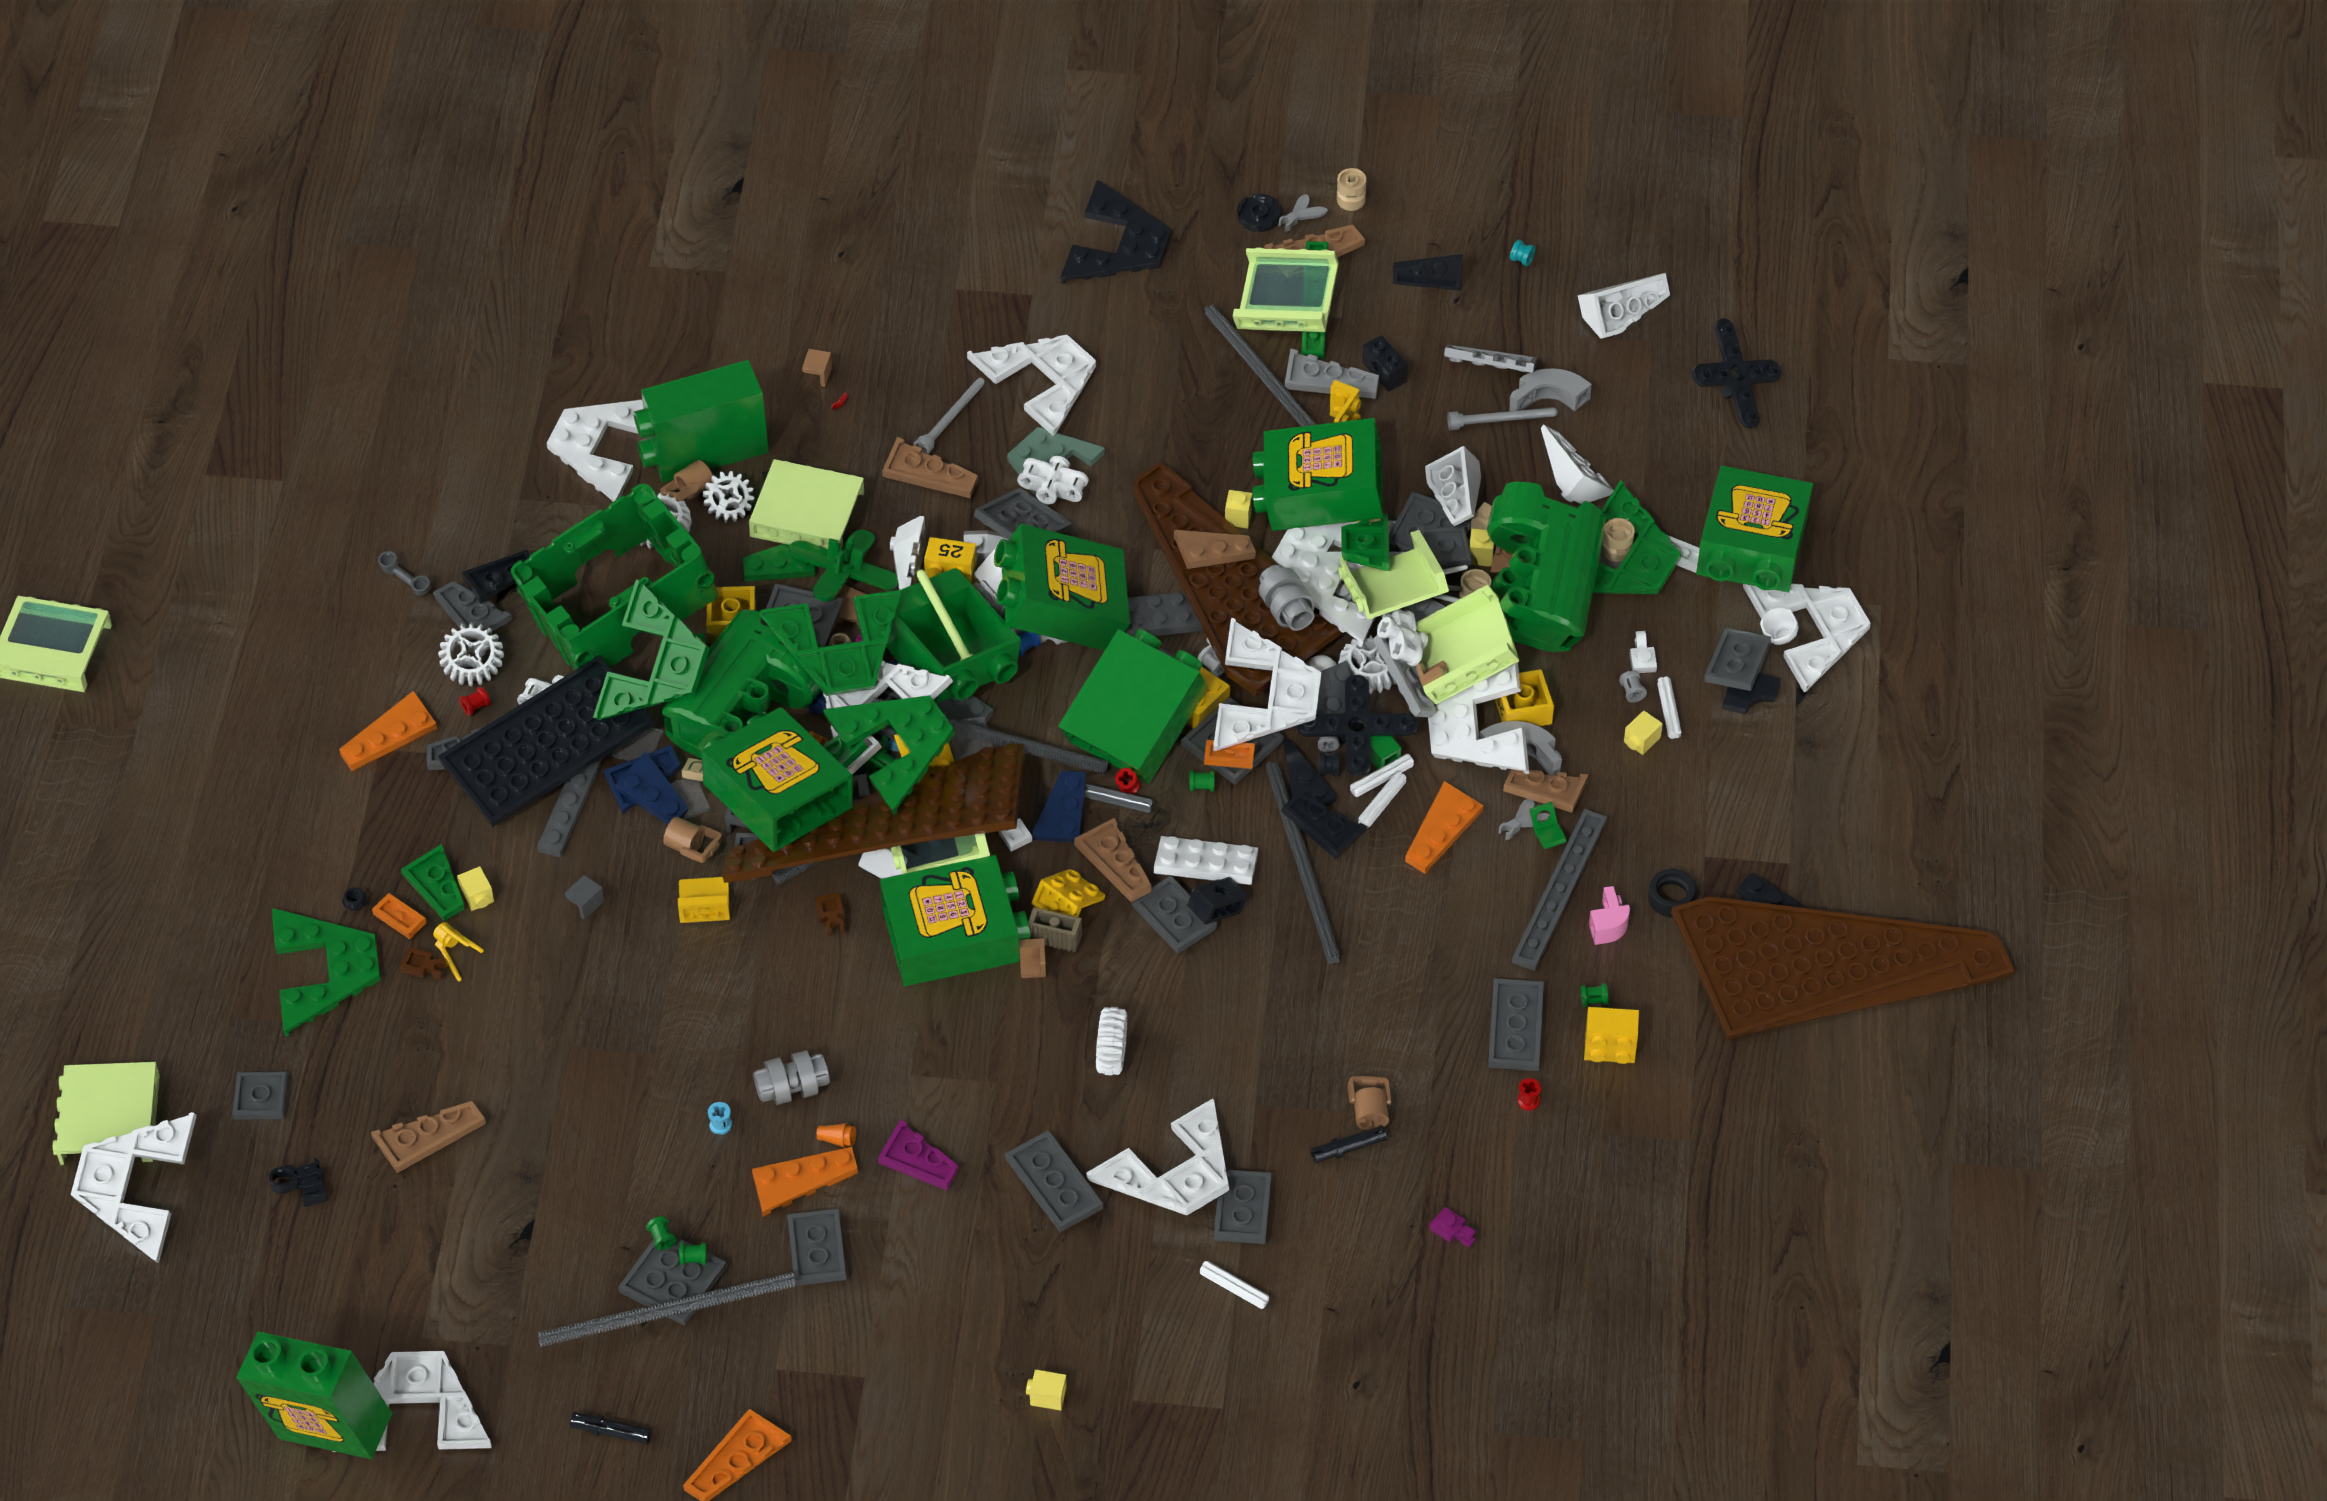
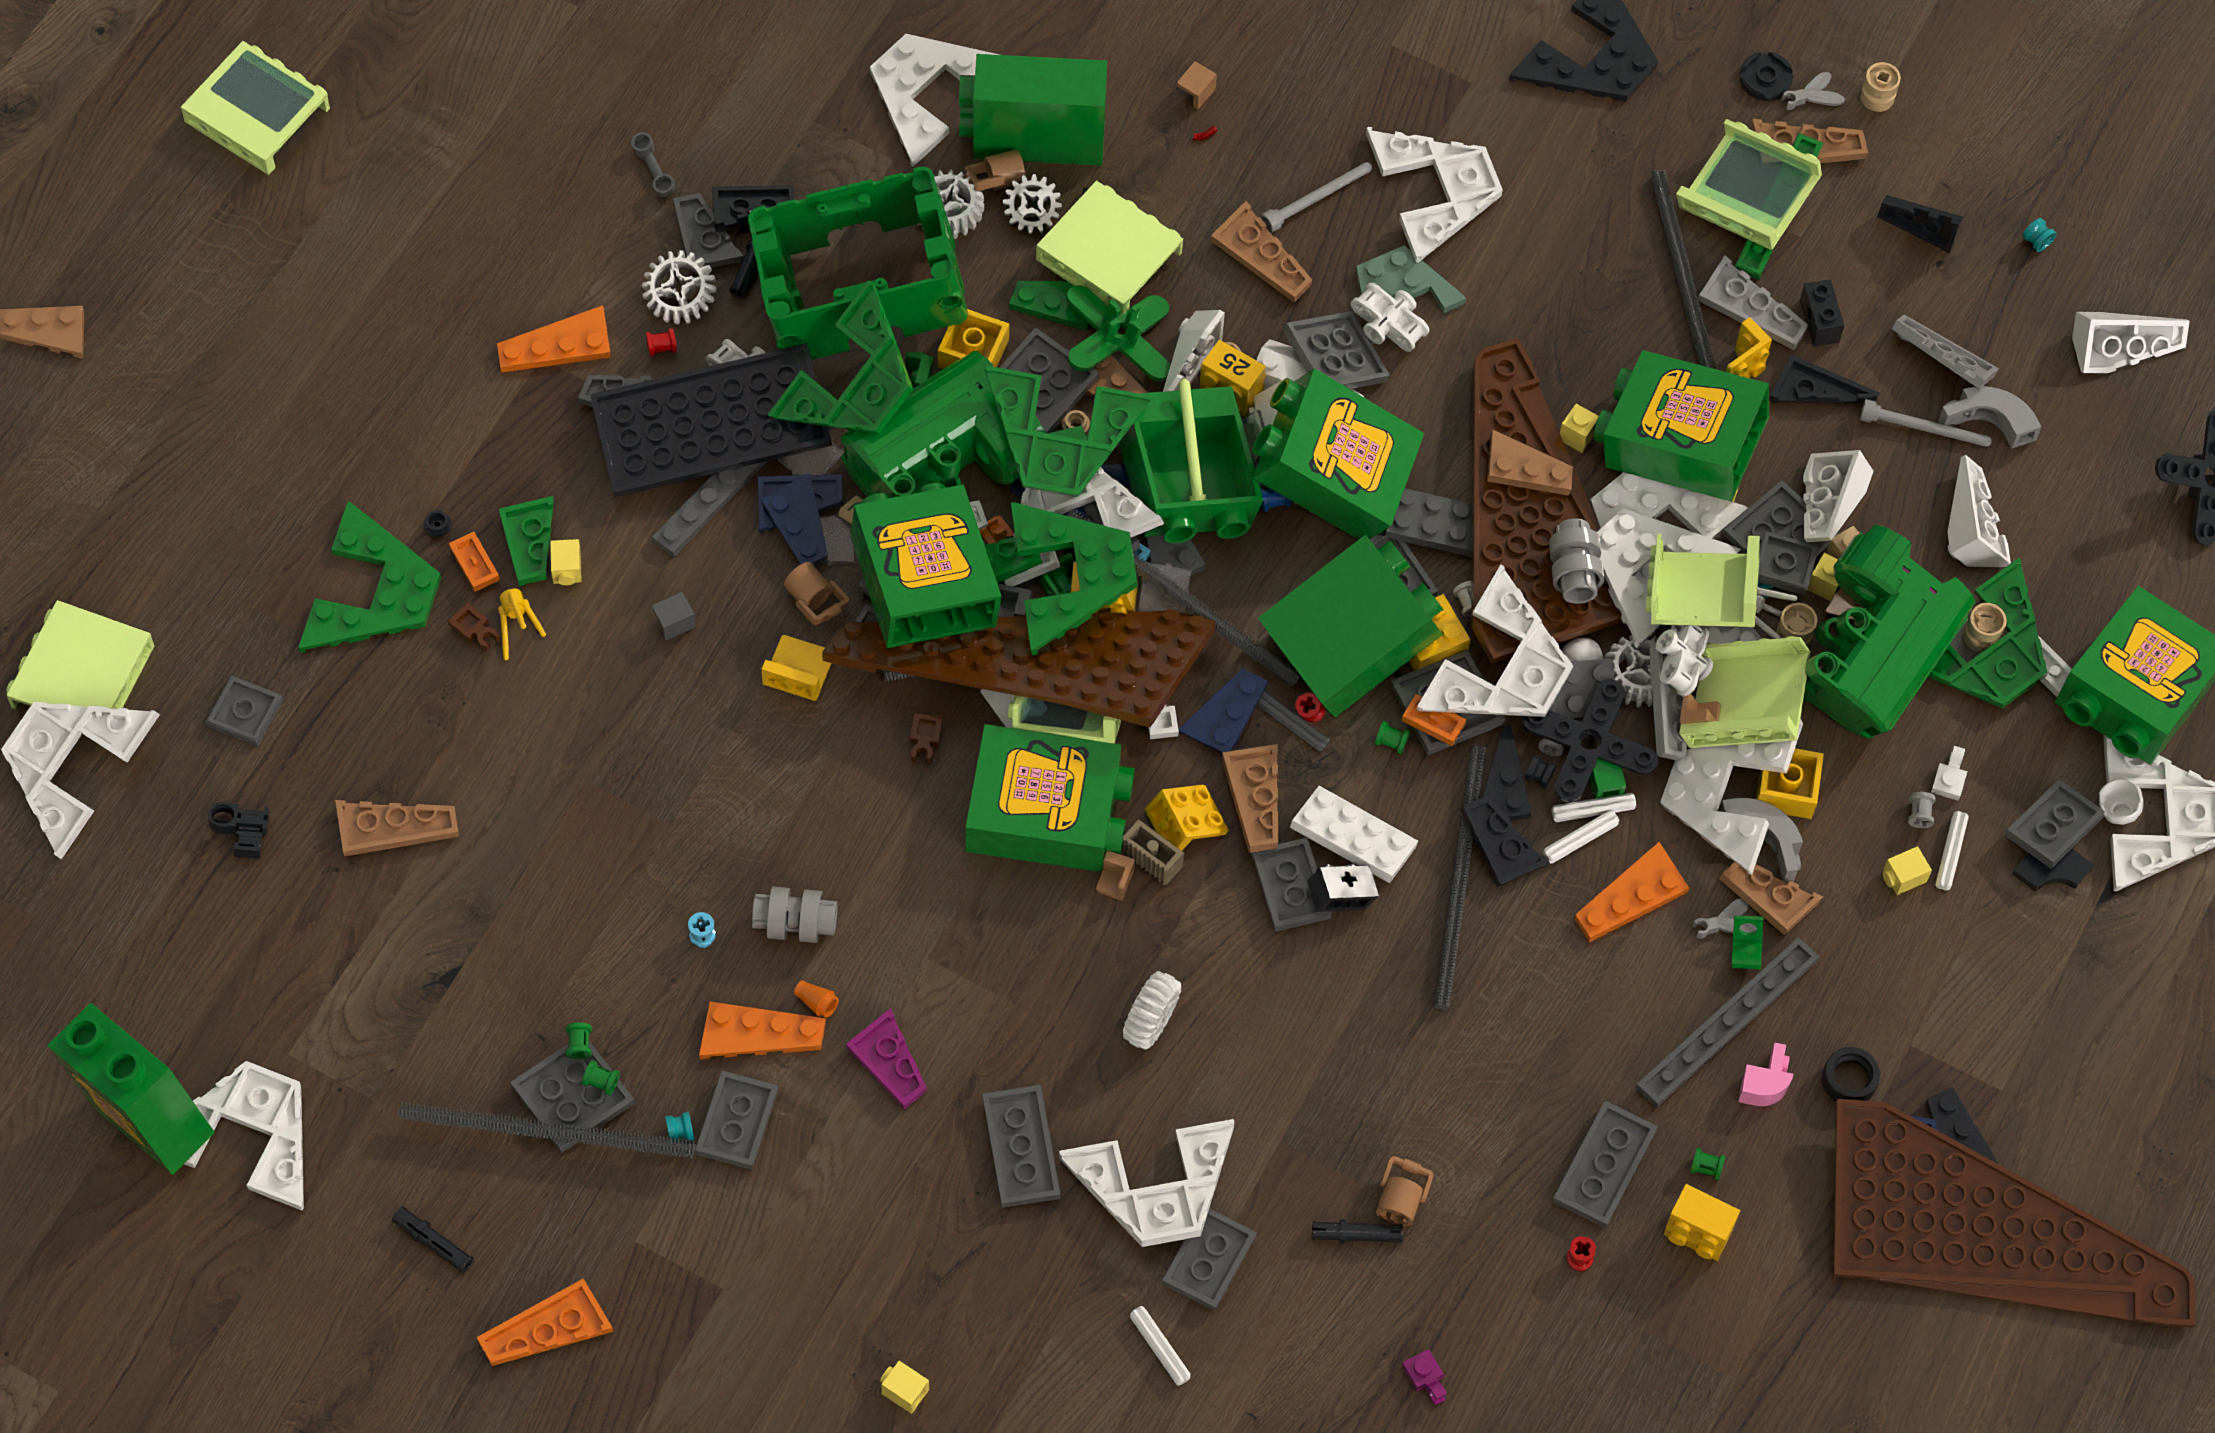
camera: 20 degrees right, 10 degrees up
(519, 626) = (745, 273): none -> black pin
(773, 1267) = (679, 1127): none -> teal wheel
(1367, 543) = (1699, 526): green wing -> none
(1400, 417) = (1812, 384): none -> black wing

